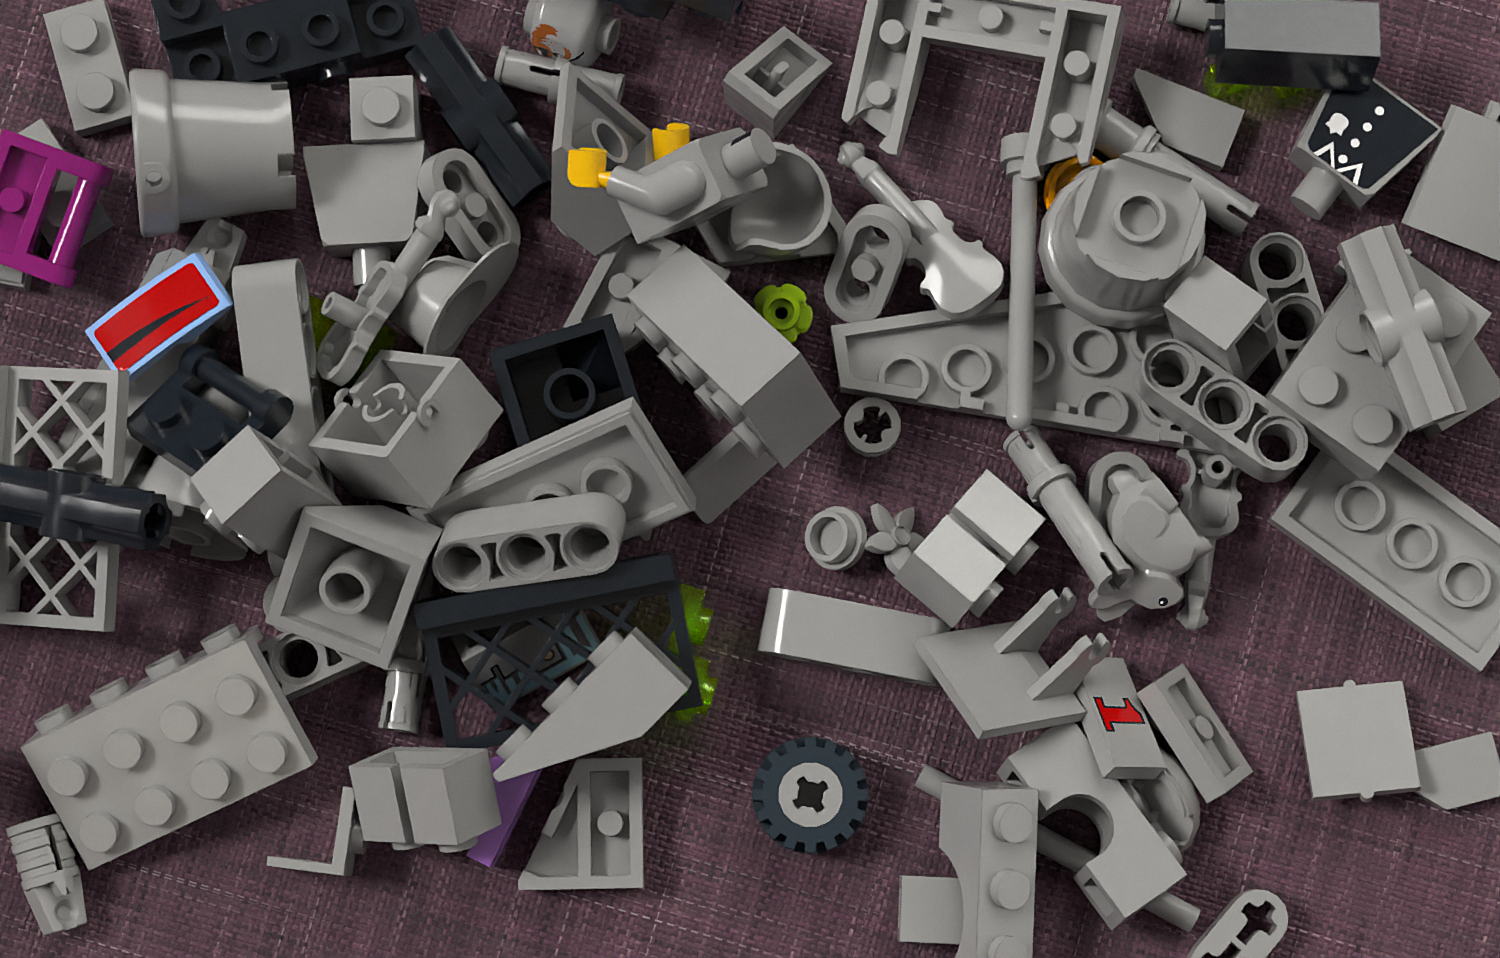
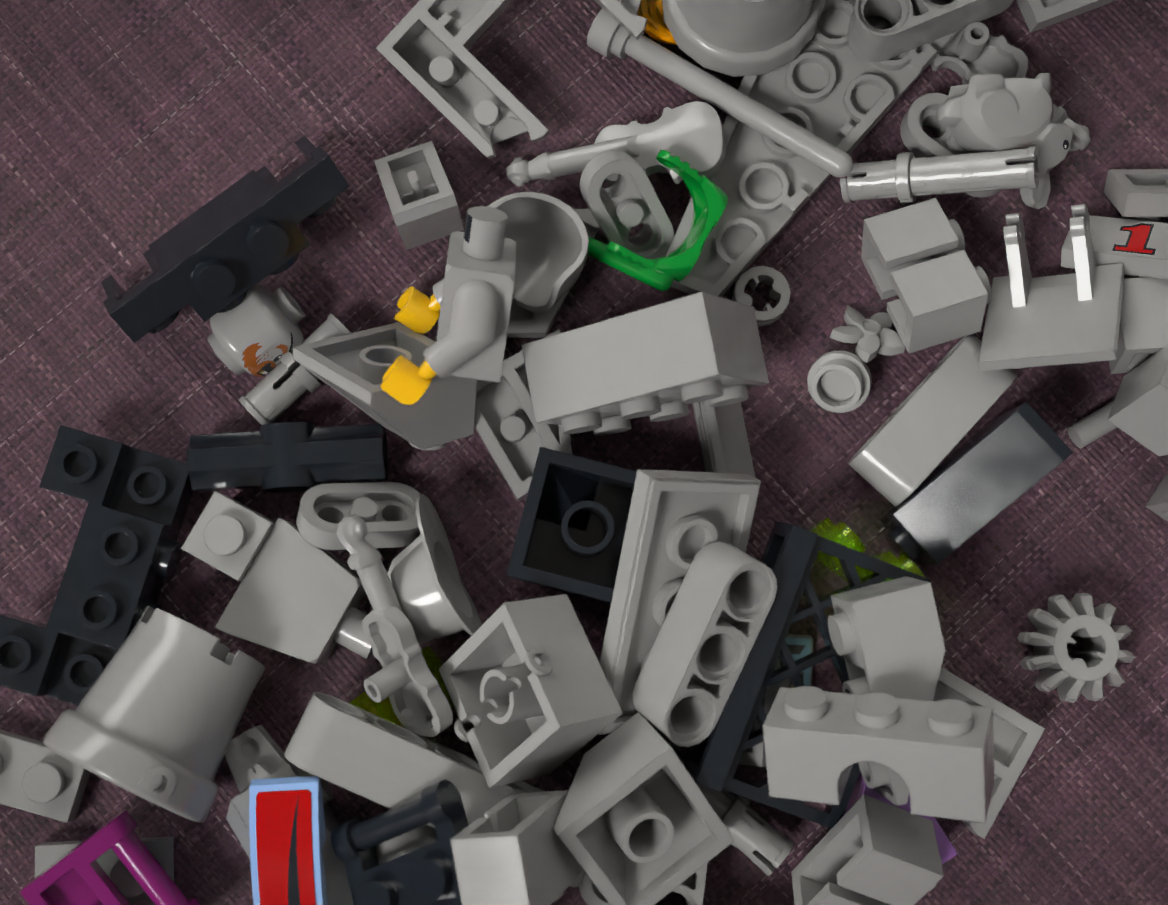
camera: 65 degrees left, 0 degrees up
(550, 764) = (935, 746): none -> light grey arch
(708, 877) = (1099, 652): none -> light grey gear
(790, 298) = (612, 295): lime plate -> none
(803, 822) = (1020, 543): black wheel -> none
(806, 698) = (974, 485): none -> slope
(830, 324) = (660, 273): none -> green helmet

